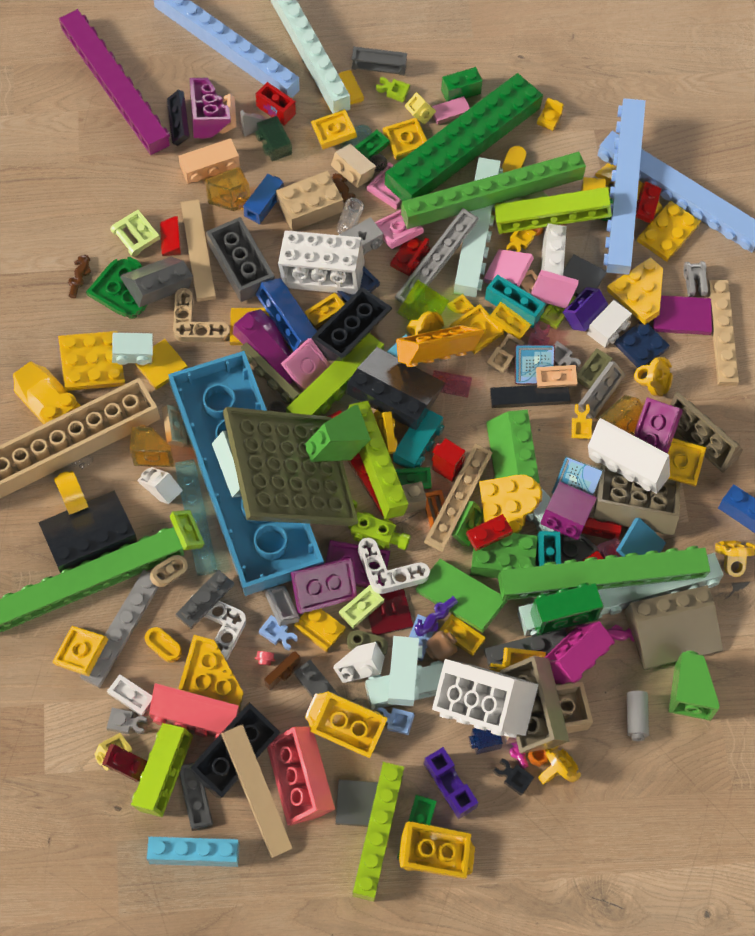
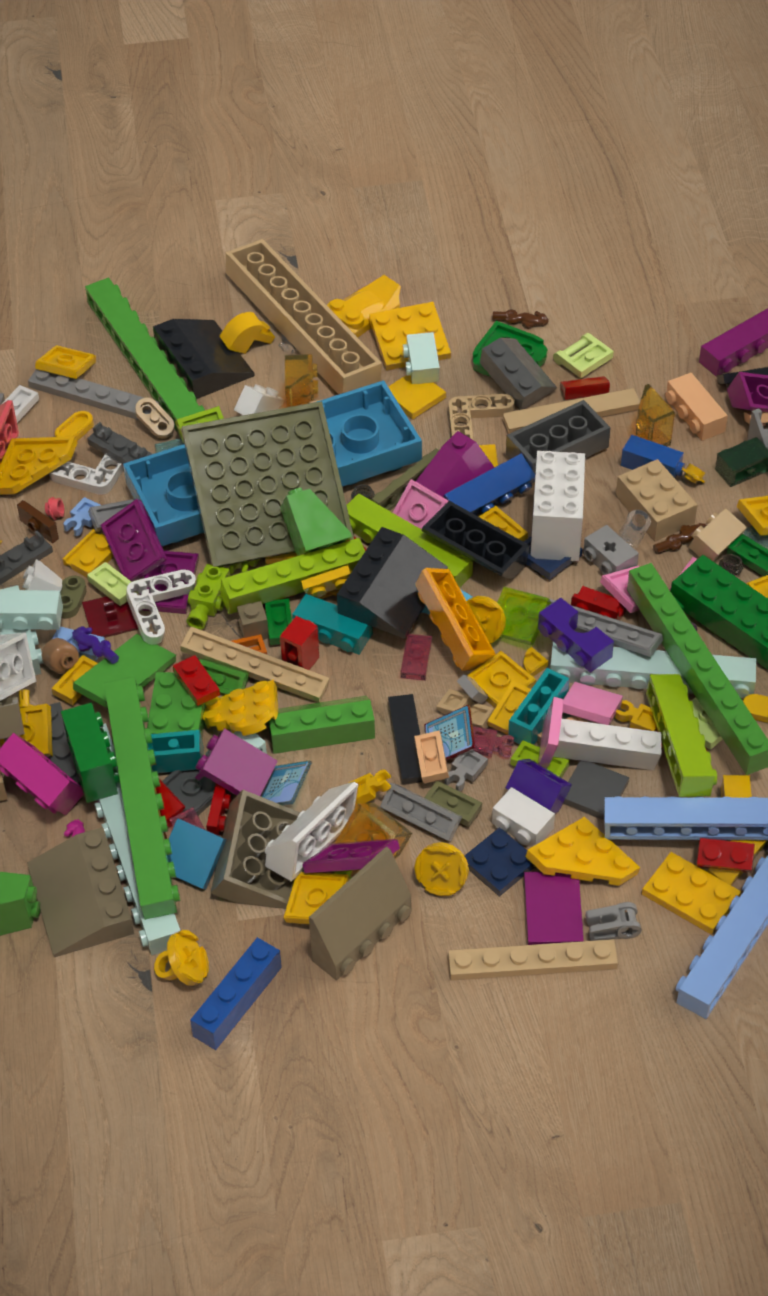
camera: 90 degrees right, 15 degrees down
(282, 172) = (693, 473): none -> yellow plate
(446, 275) = (587, 648): none -> dark purple arch
(492, 344) = (472, 688): none -> light grey tile

